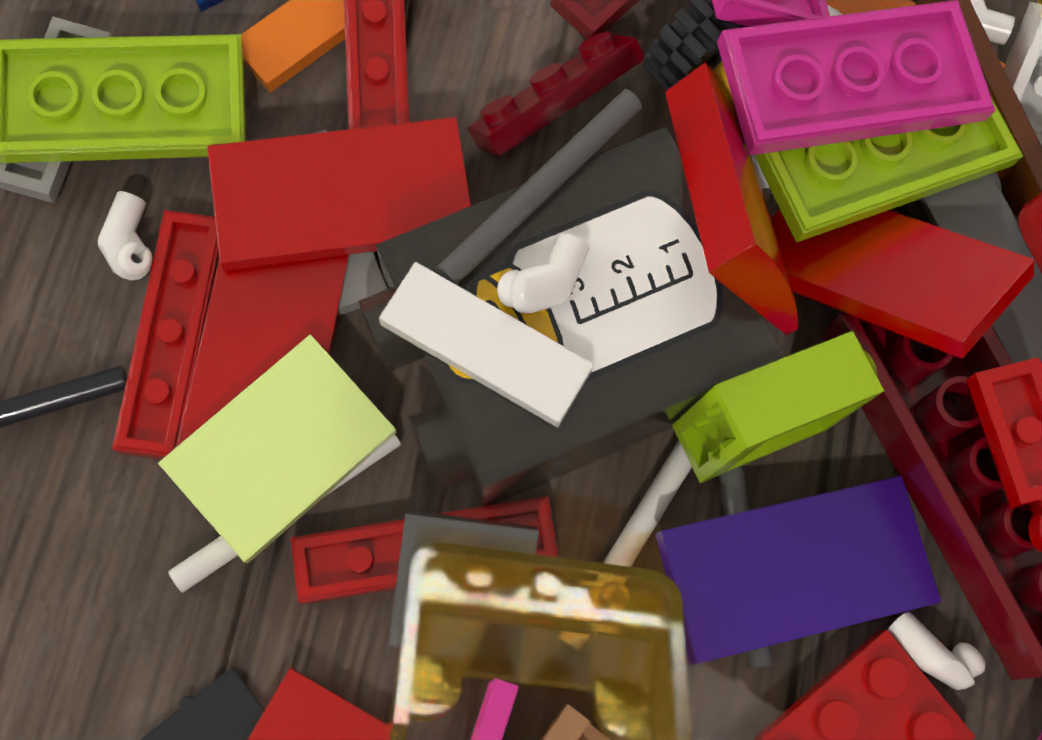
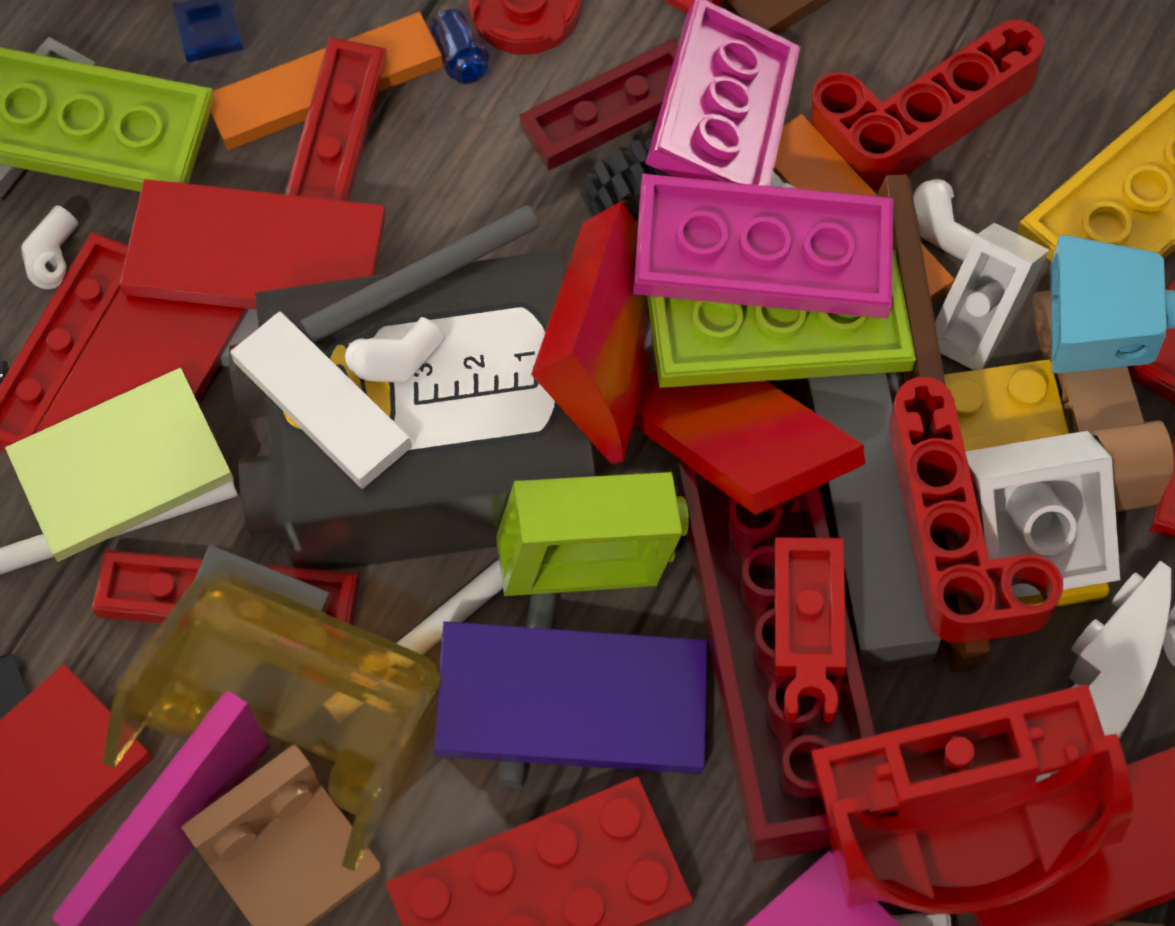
camera: 25 degrees right, 10 degrees down
(554, 92) = (489, 202): dark red plate -> none
(931, 656) = (677, 817): white arm -> none

